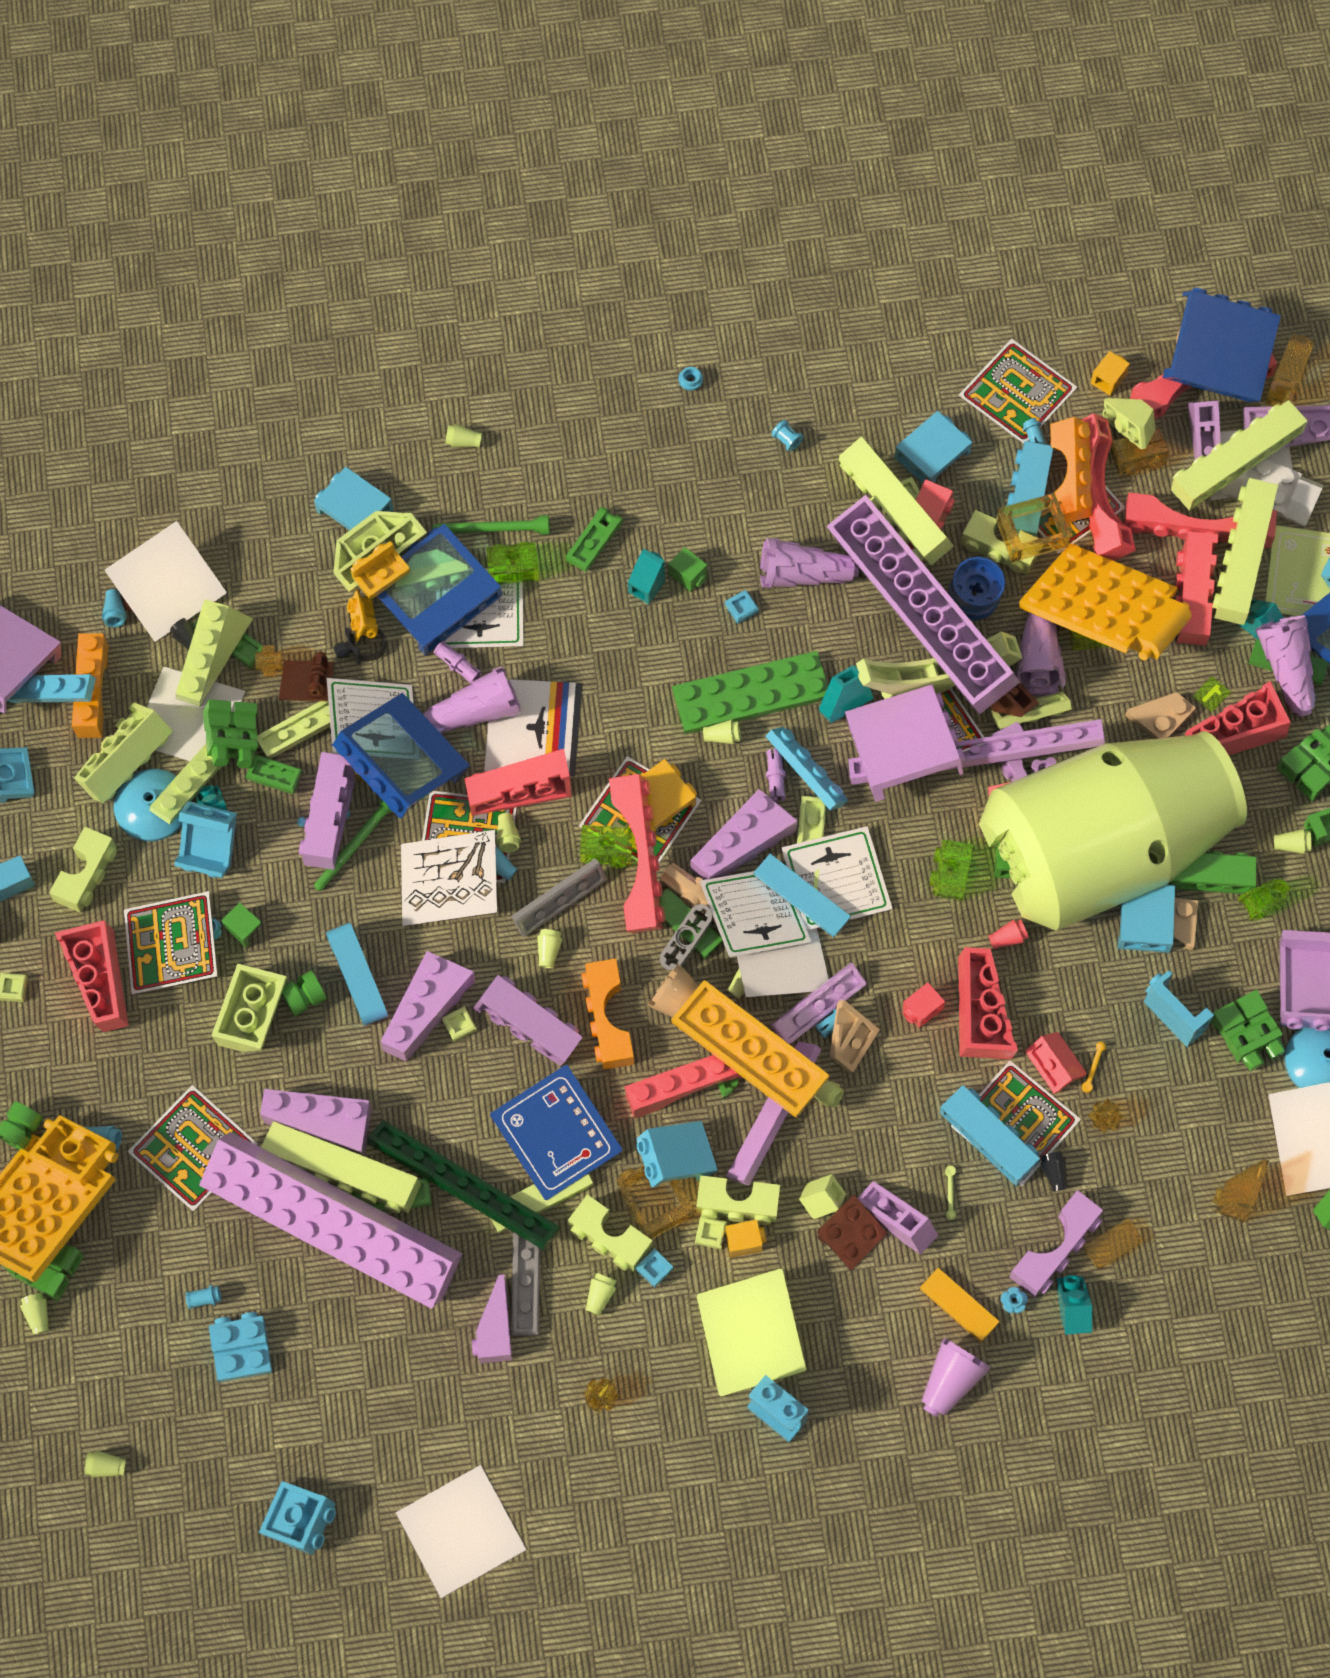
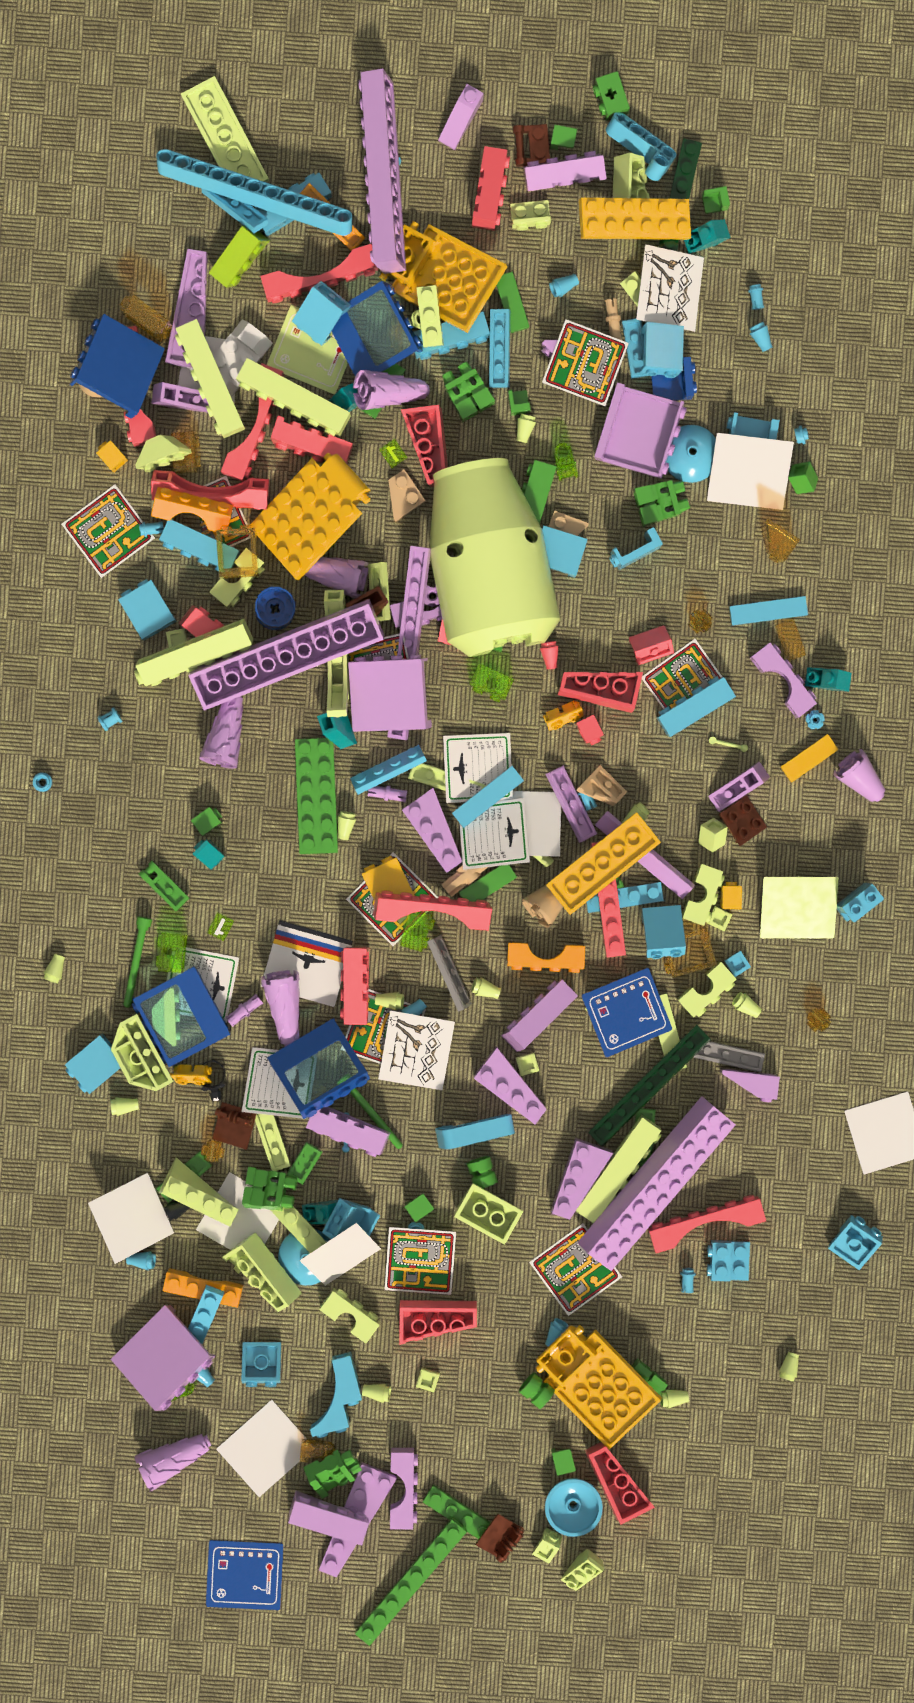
camera: 80 degrees left, 20 degrees up
(162, 833) = (340, 1254): none -> white sticker
(306, 546) = (123, 1105): none -> yellowish green cone
(310, 1352) = (667, 1235): none -> coral arch
(379, 570) = (164, 1055): yellow bracket -> none
(557, 616) = (220, 927): none -> clear neon green sticker
(683, 957) = (506, 900): light grey beam -> none
(714, 1110) = (632, 896): none -> medium azure plate
(741, 606) = (244, 786): medium azure tile -> none
(924, 961) = (571, 713): none -> yellow hinge
(1055, 1170) = (730, 667): black cone -> none
(1087, 1086) = (673, 627): yellow hinge -> none
(1145, 1206) = (768, 610): none -> medium azure tile

